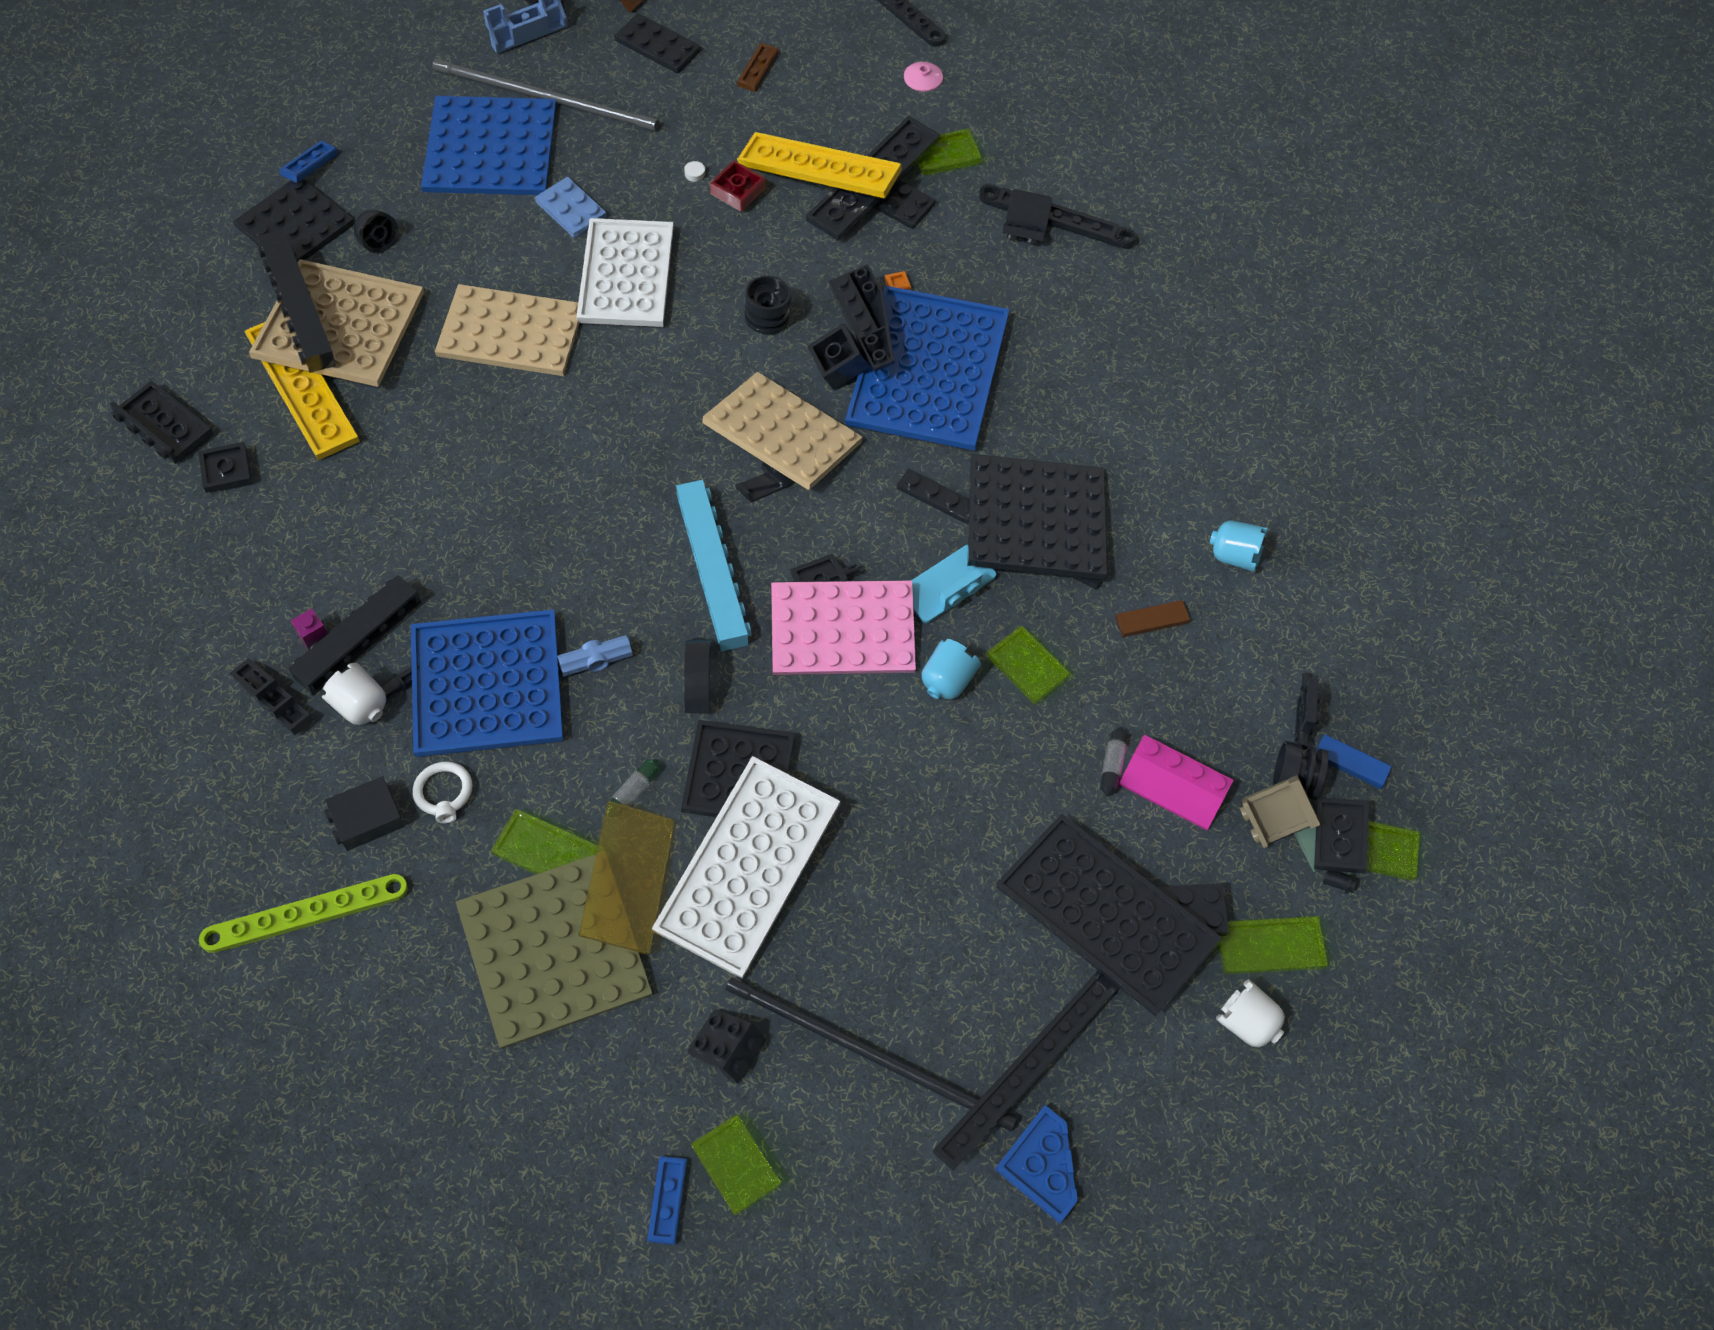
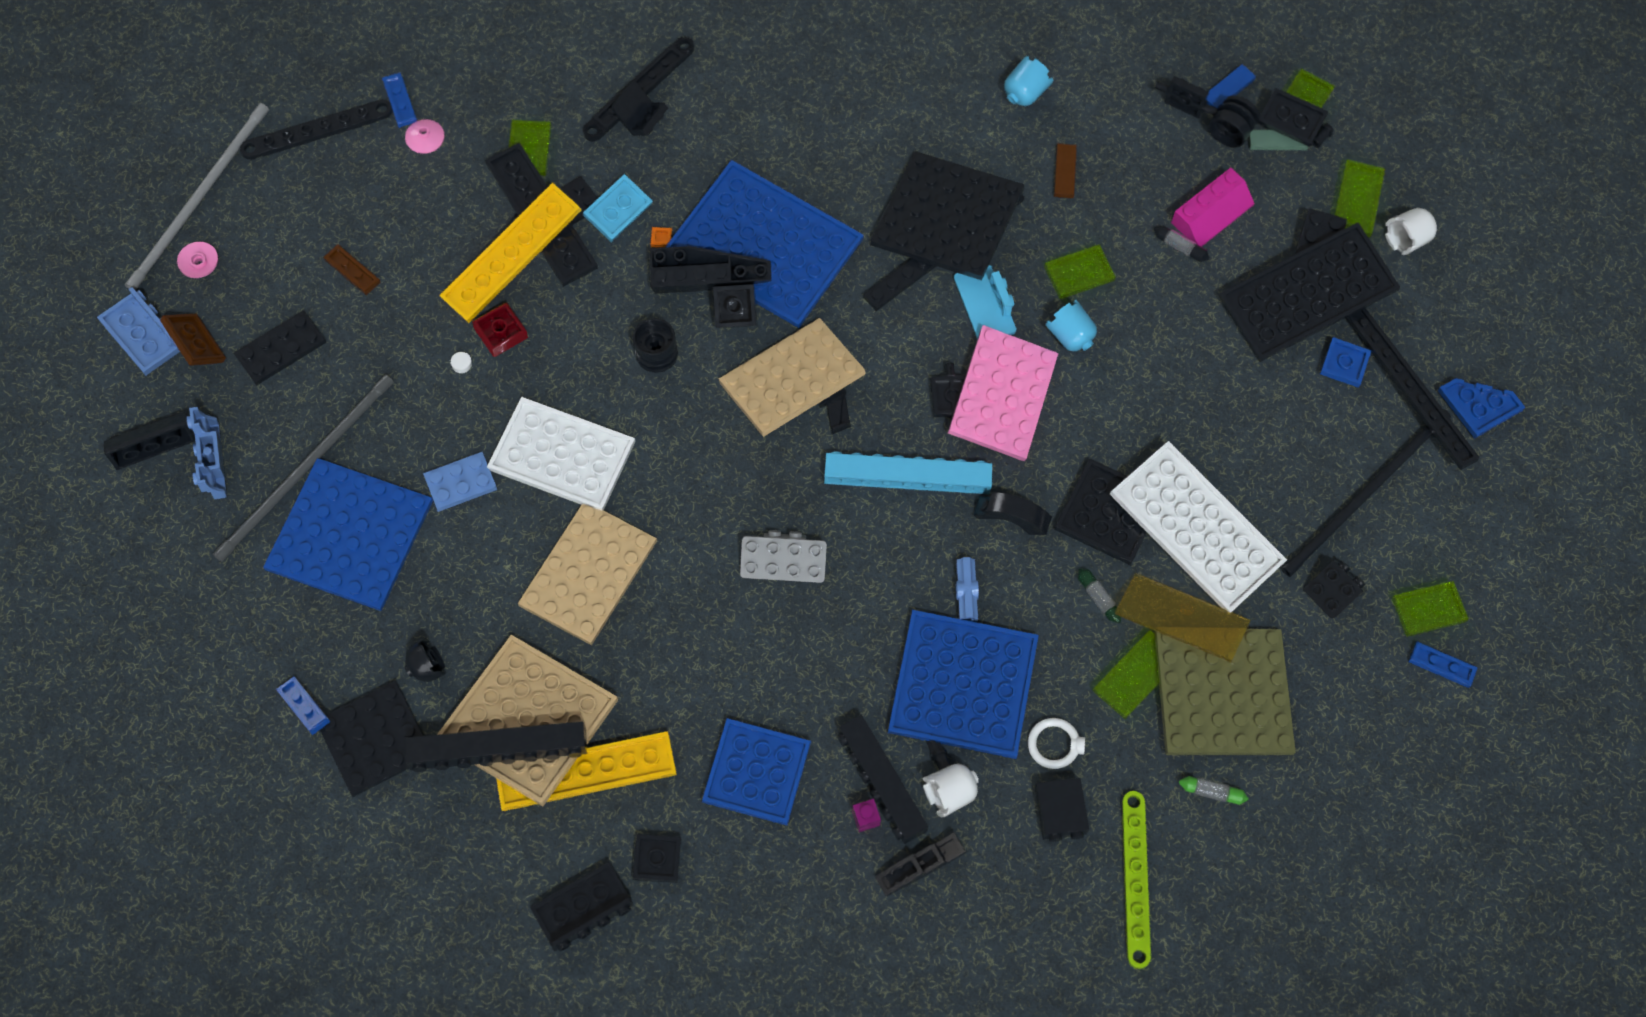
camera: 70 degrees left, 5 degrees up
(336, 524) = (756, 771): none -> blue plate
(428, 968) = (1213, 790): none -> piece
(577, 479) = (783, 557): none -> light grey bracket
(911, 236) = (617, 208): none -> medium azure plate
(952, 46) = (399, 99): none -> blue tile
(1034, 984) = (1345, 362): none -> blue plate
(1279, 811) = (1264, 147): dark tan panel -> none

